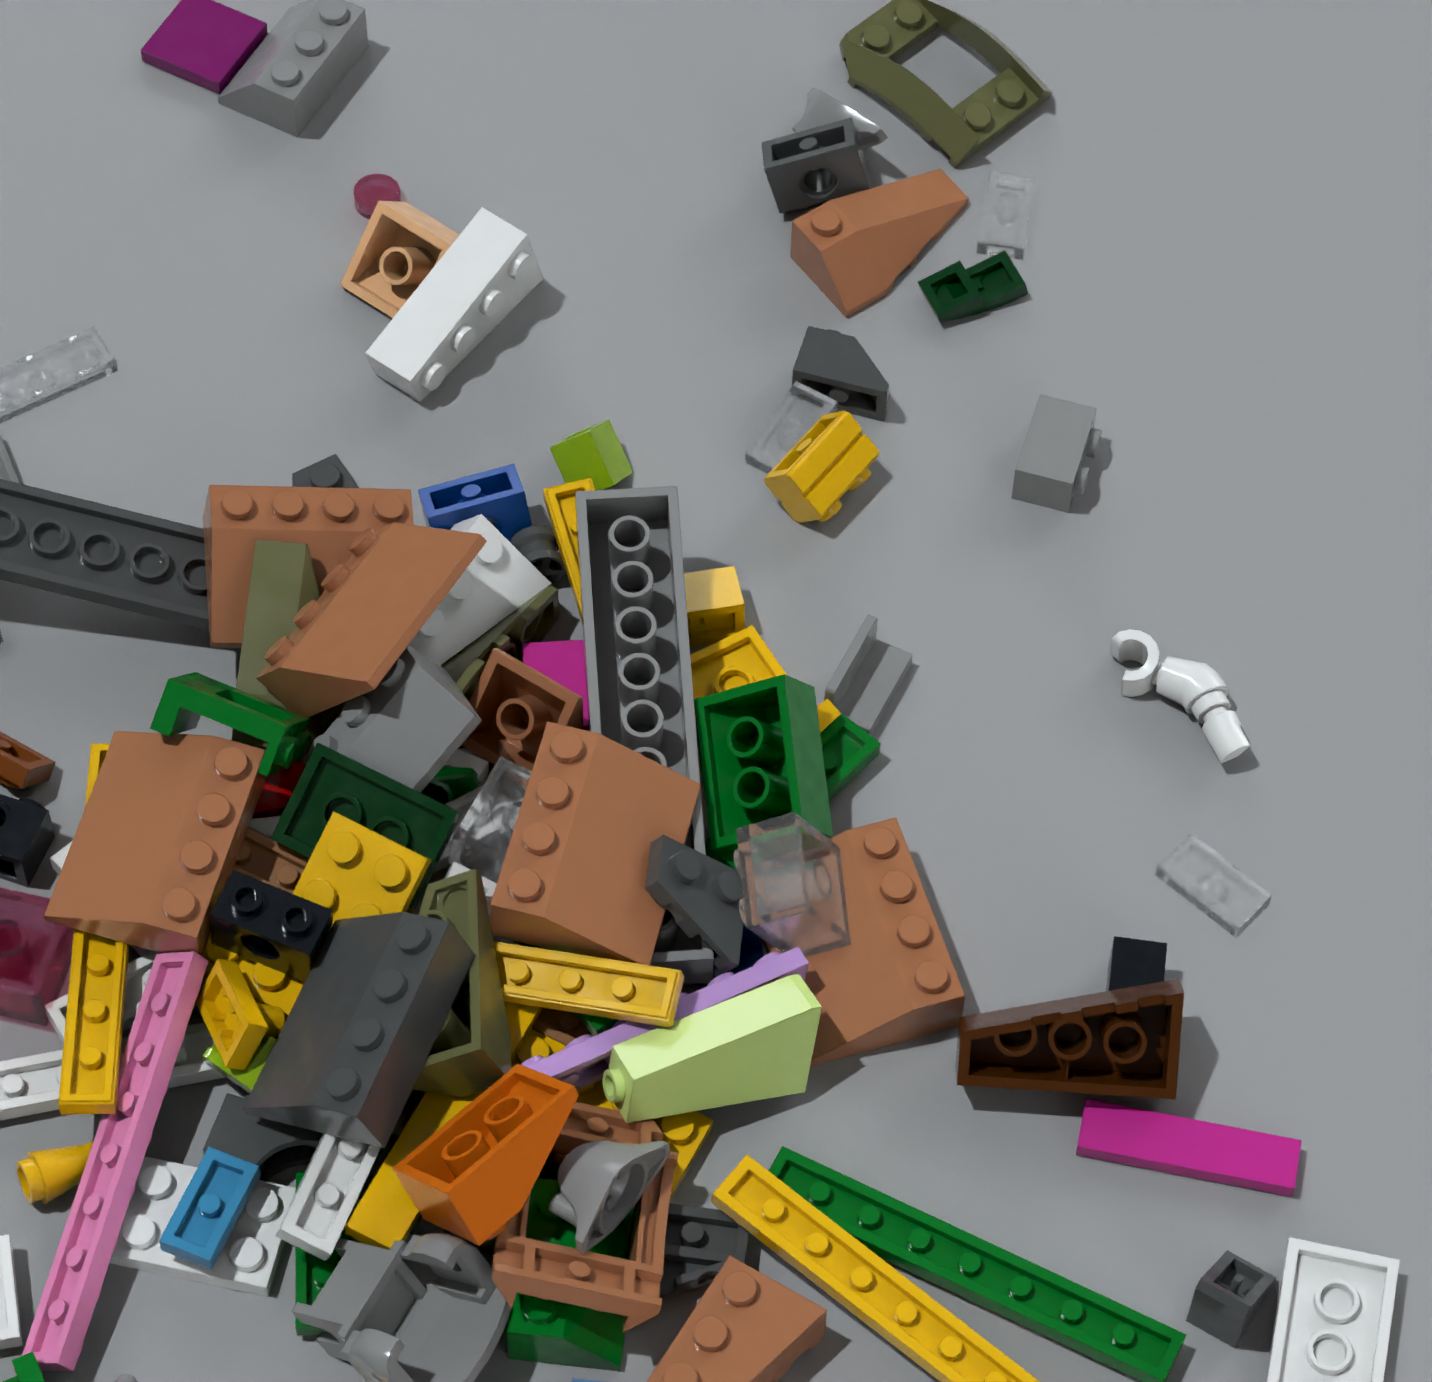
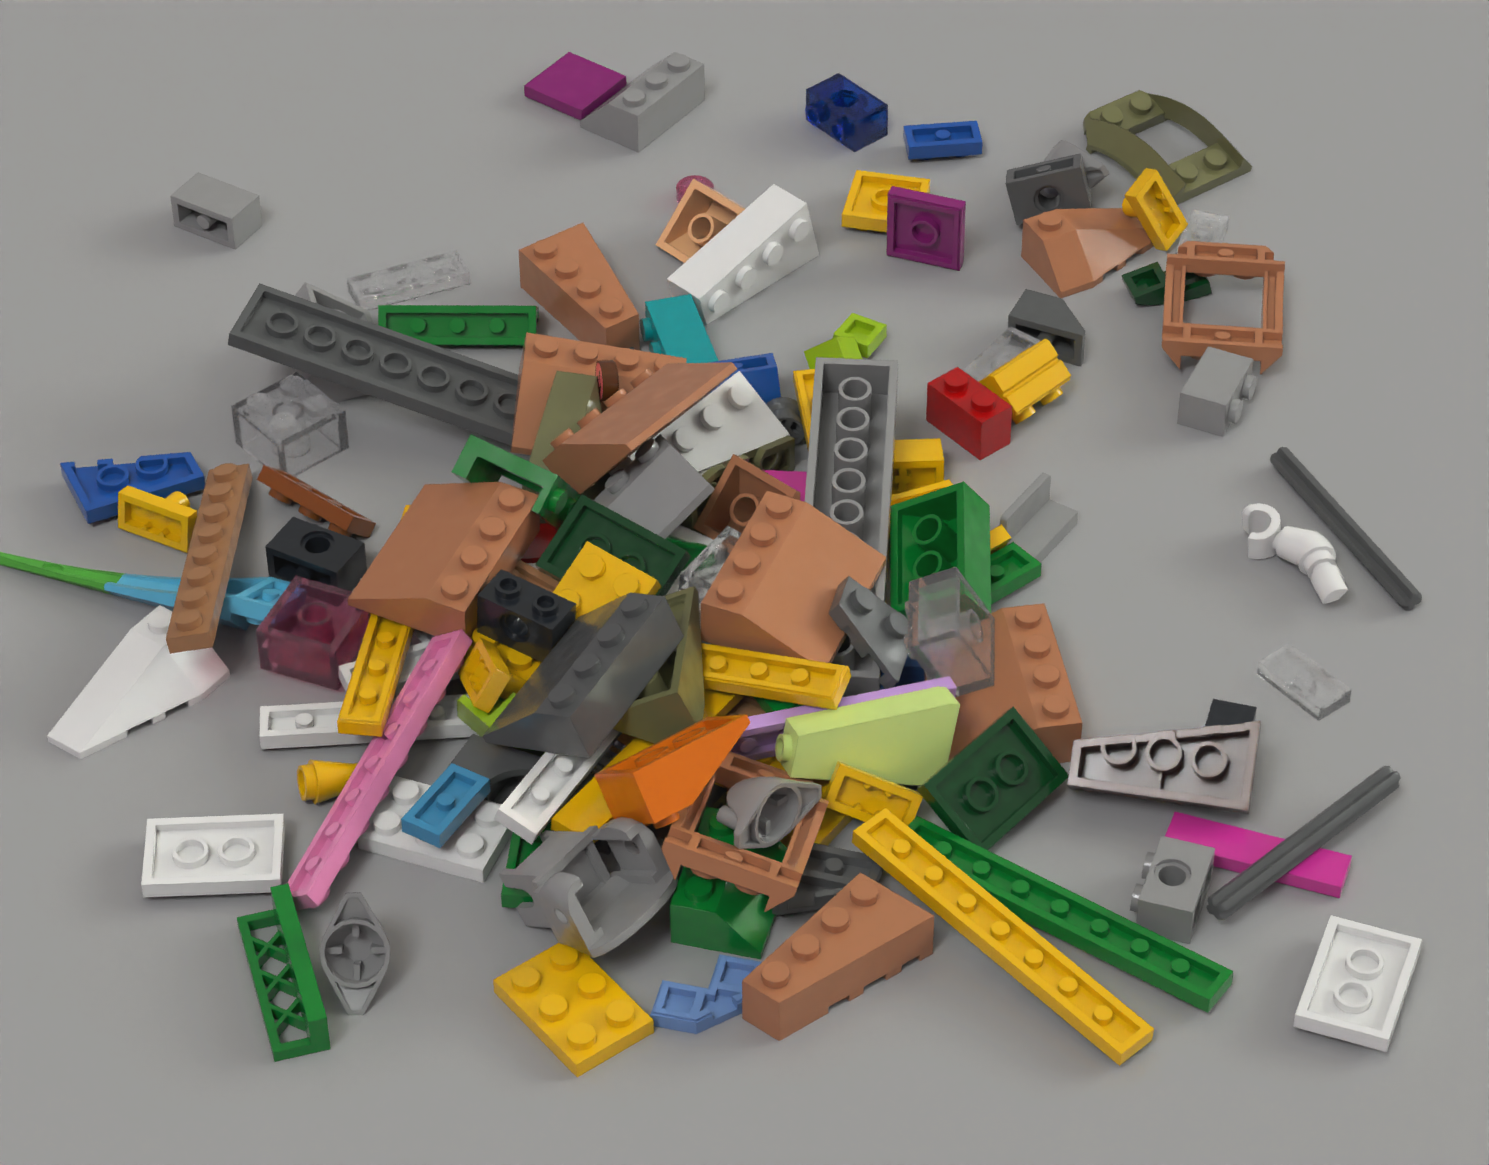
camera: 10 degrees right, 15 degrees down
(112, 439) = (462, 323): none -> green fence
(258, 375) = (579, 288): none -> nougat wedge
(320, 546) = (607, 378): none -> reddish brown tile
(391, 440) = (676, 329): none -> teal brick
(549, 58) = (846, 112): none -> clear blue brick
(613, 402) = (867, 332): none -> lime plate
(616, 195) = (868, 198): none -> yellow plate
(672, 89) = (942, 140): none -> blue plate
(673, 242) = (925, 228): none -> magenta tile
(725, 1132) = (865, 795): none -> yellow tile
(762, 519) = (968, 413): none -> red brick
(868, 1091) = (993, 781): none -> dark green plate
(948, 187) = (1155, 209): none -> yellow tile
(1068, 378) = (1244, 263): none -> nougat wedge
(1092, 1248) = (1173, 888): none -> light grey brick
(1229, 1298) = (1271, 955): dark grey slope -> none
(1233, 644) = (1346, 529): none -> dark grey axle
(1244, 1134) = (1303, 843): none -> dark grey axle

